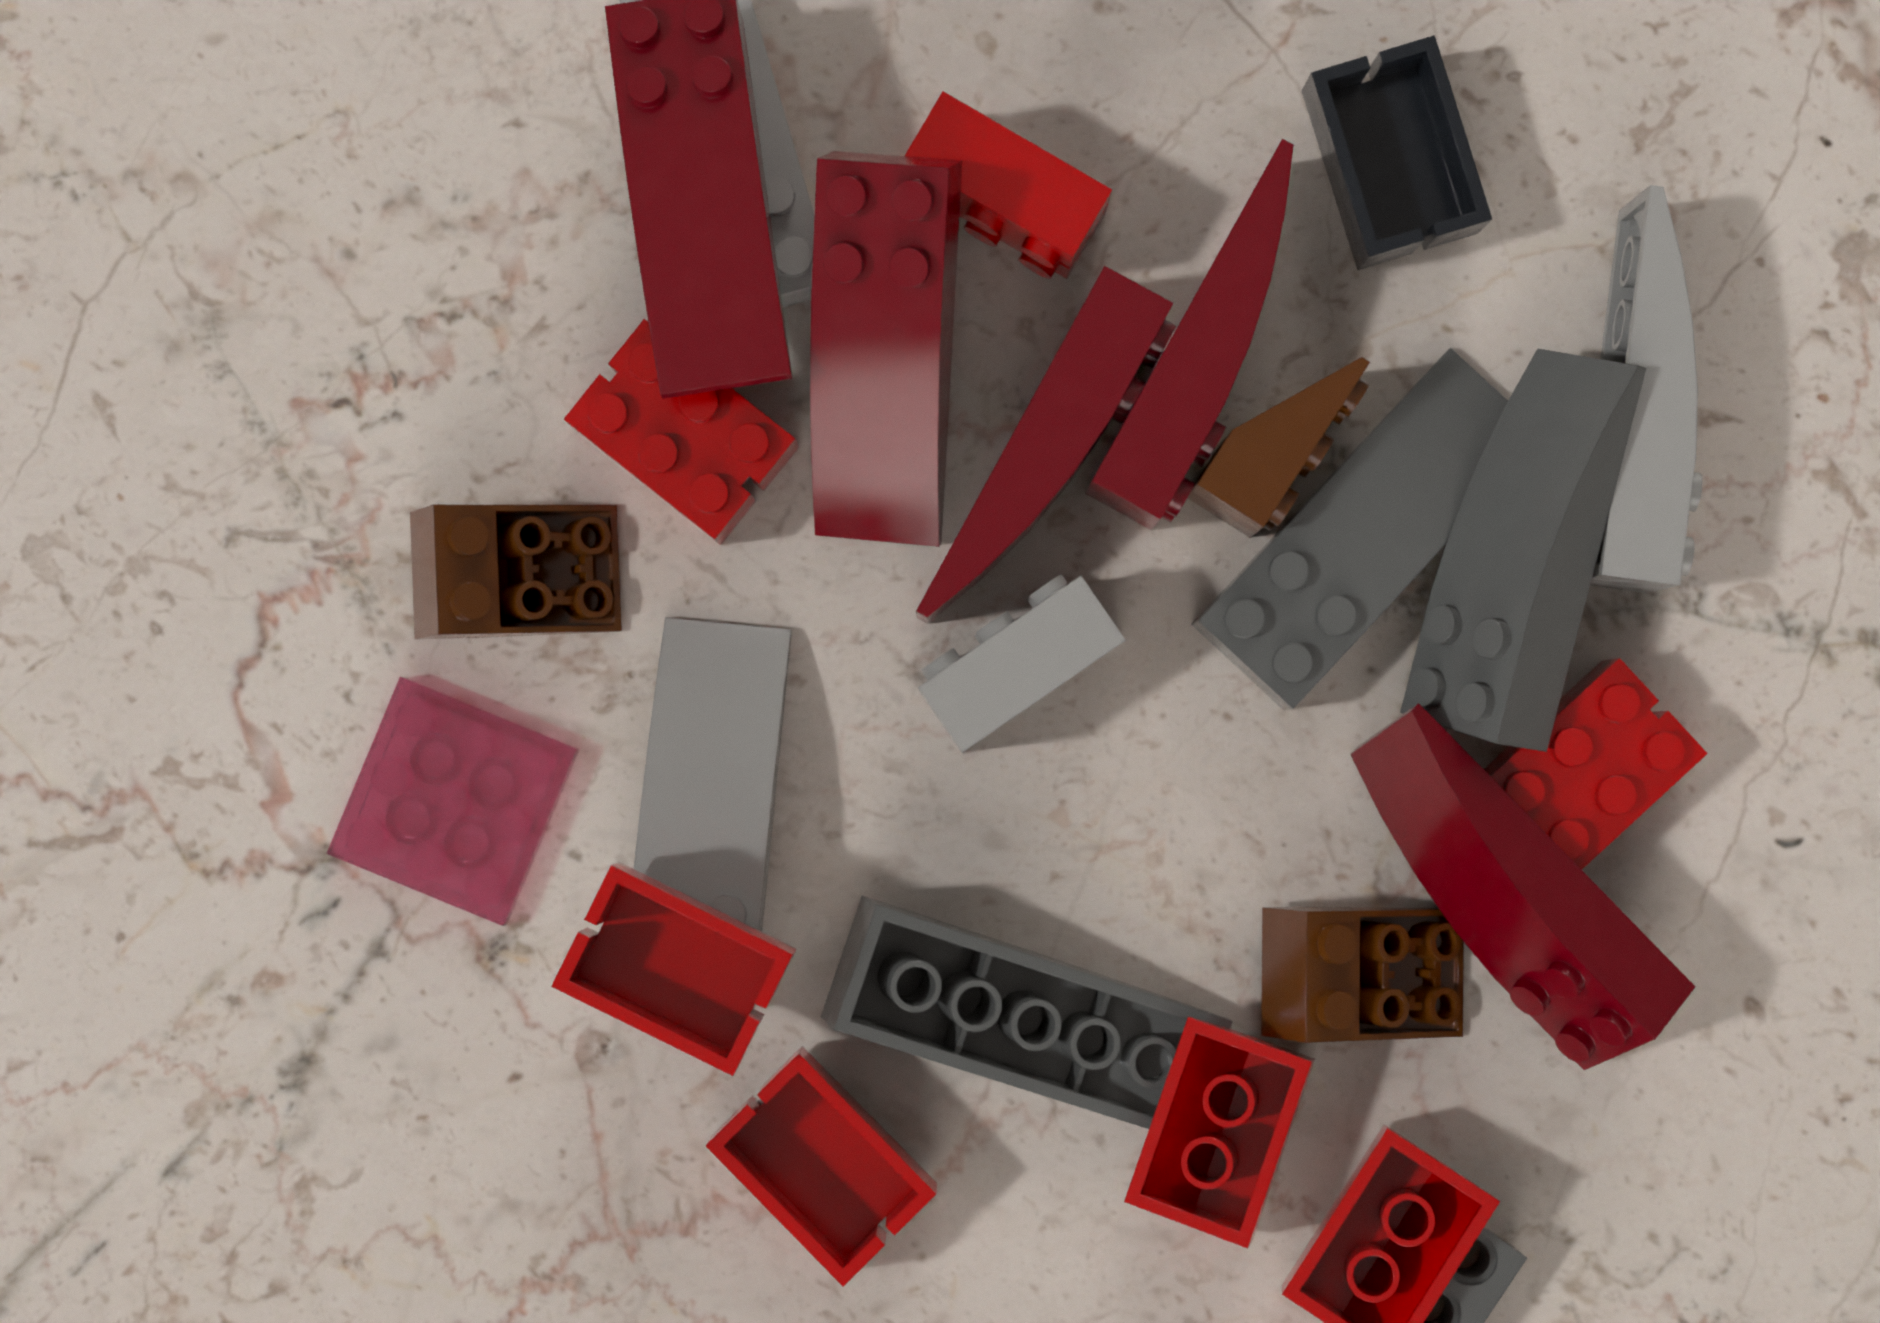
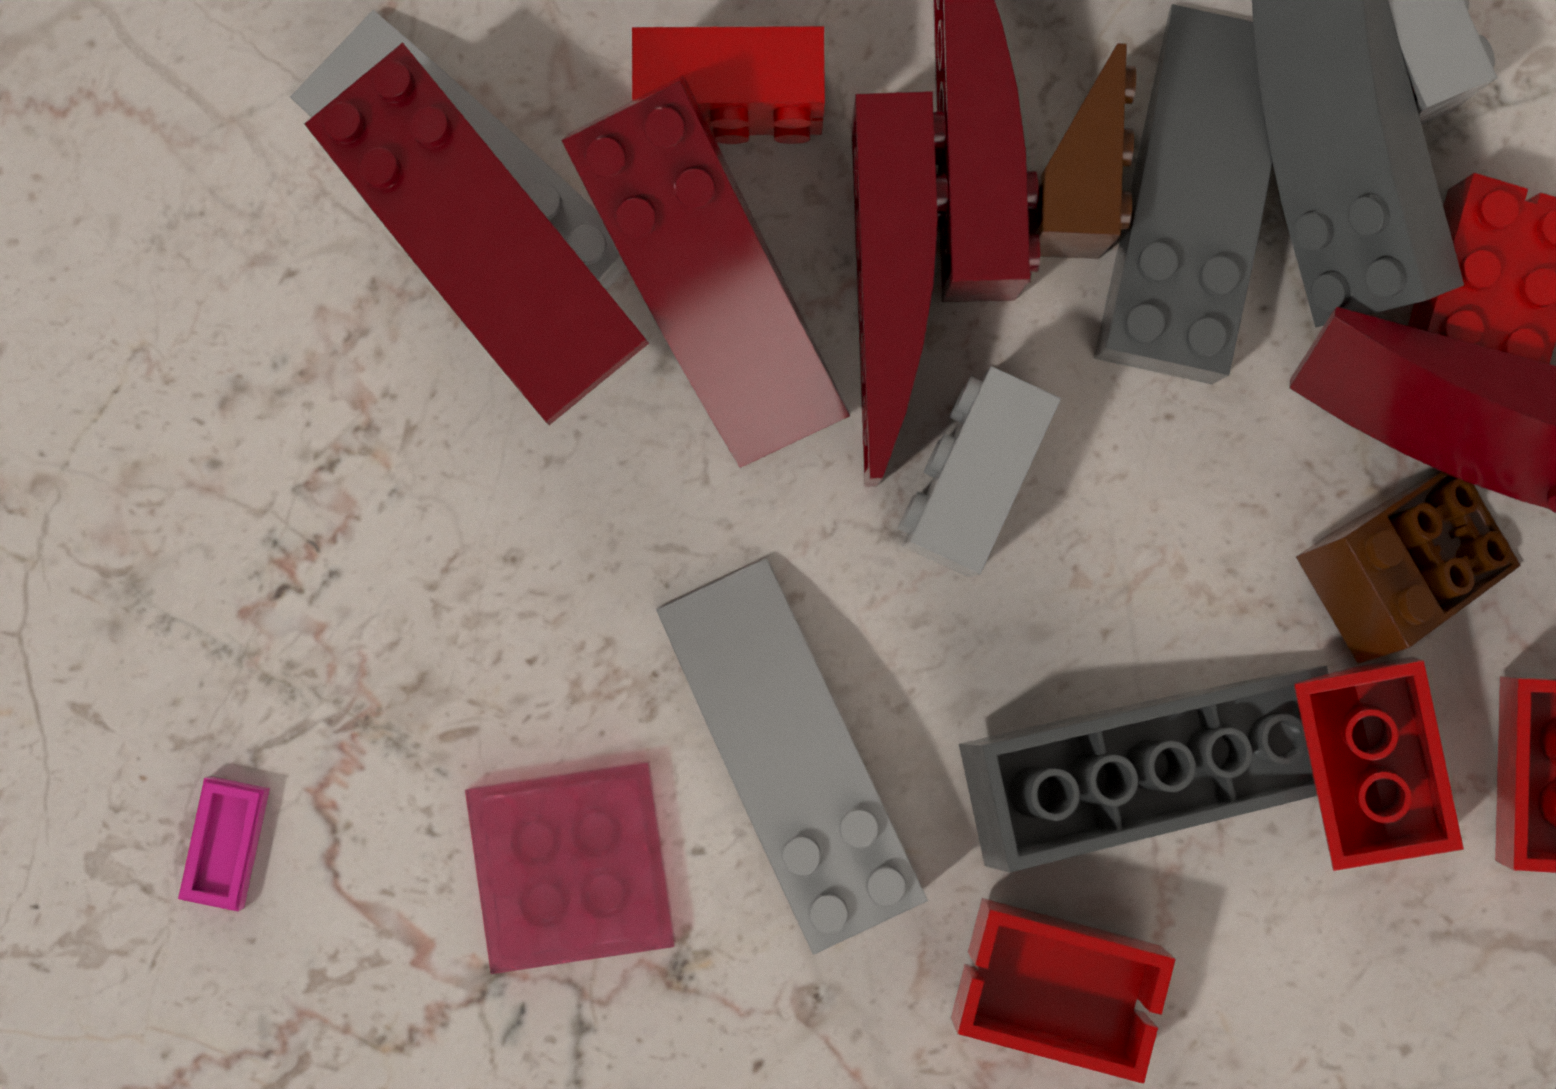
camera: 25 degrees left, 0 degrees up
(158, 598) = (223, 843): none -> dark pink tile
(514, 570) = (507, 644): reddish brown slope -> none
(674, 968) = (848, 902): red piece -> none
(685, 447) = (589, 459): red piece -> none

